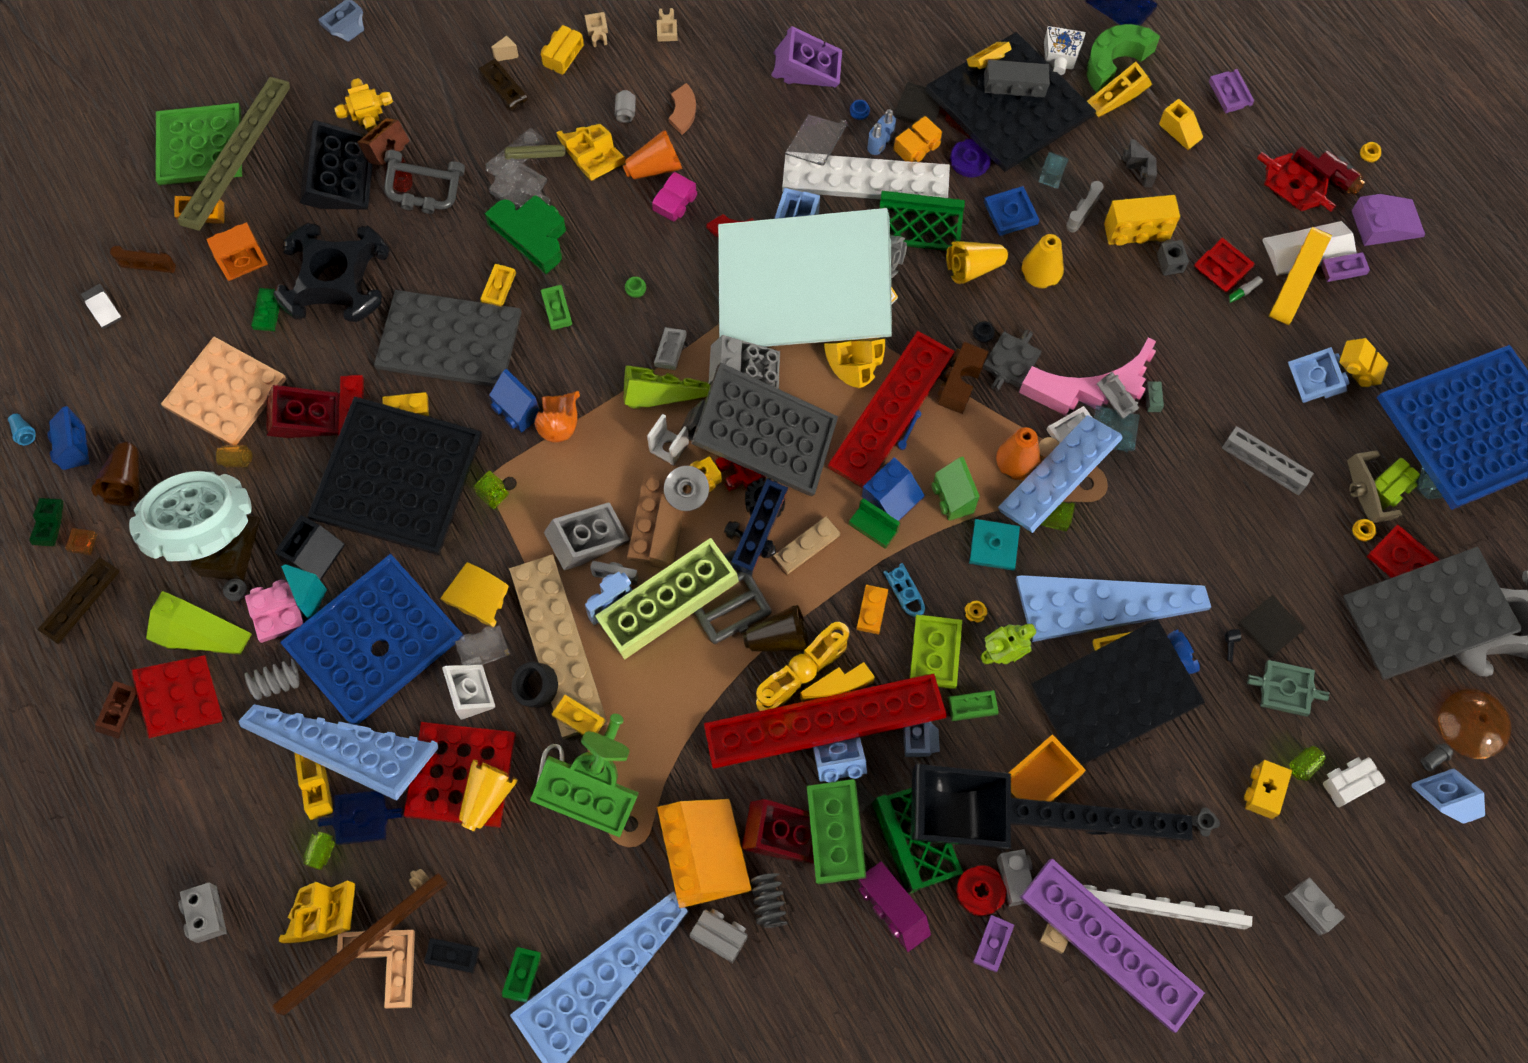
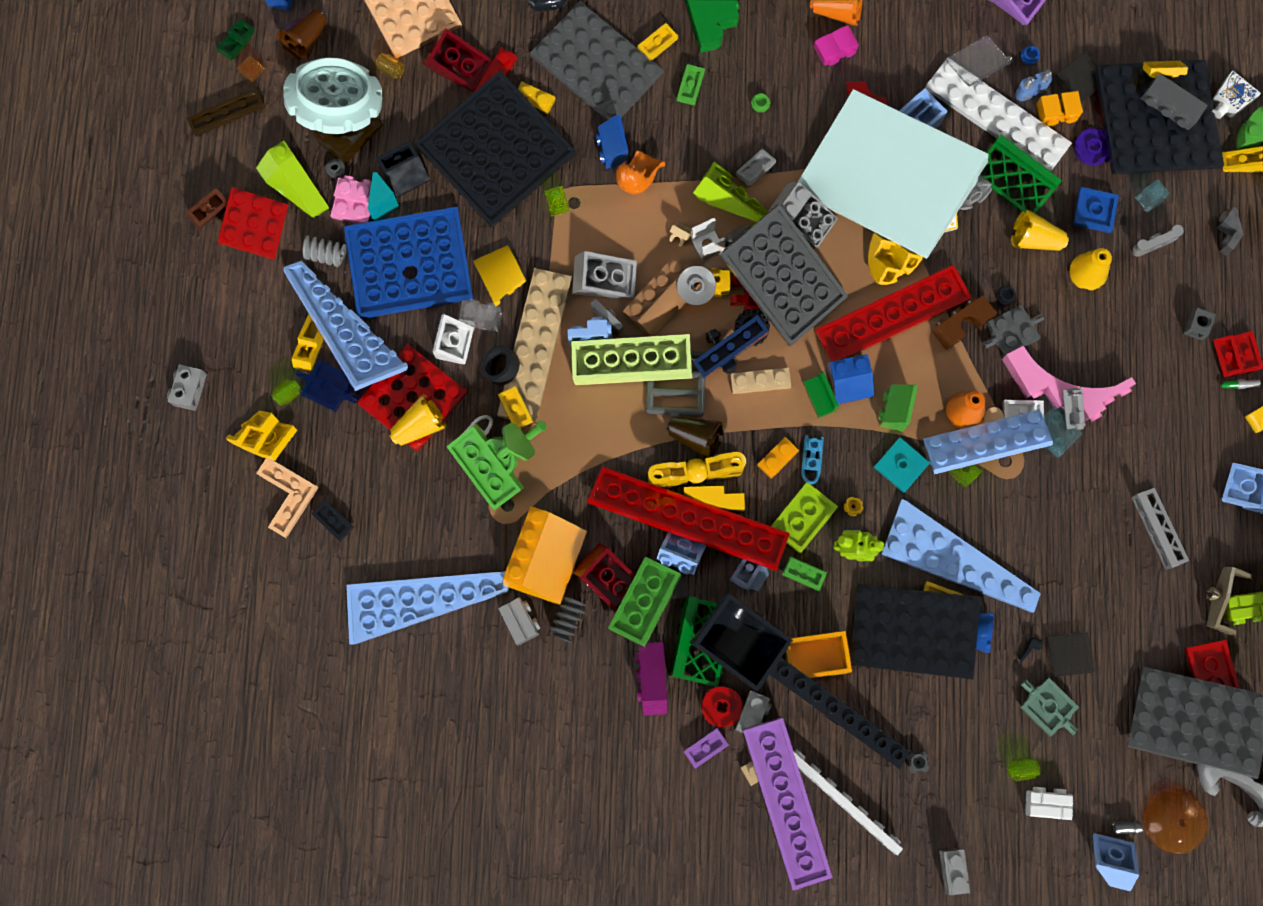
camera: 35 degrees right, 10 degrees up
(359, 944) = (276, 474): reddish brown tile -> none
(418, 878) = (340, 455): tan plate -> none
(521, 974) = (370, 562): green plate -> none
(636, 448) = (680, 231): none -> tan tile
(902, 444) = (883, 346): blue hinge -> none
(1141, 220) = (1194, 279): yellow brick -> none
(1154, 396) = (1105, 426): sand green piece -> none
(1277, 781) = (991, 768): yellow brick -> none
(1366, 524) = (1203, 628): yellow plate -> none

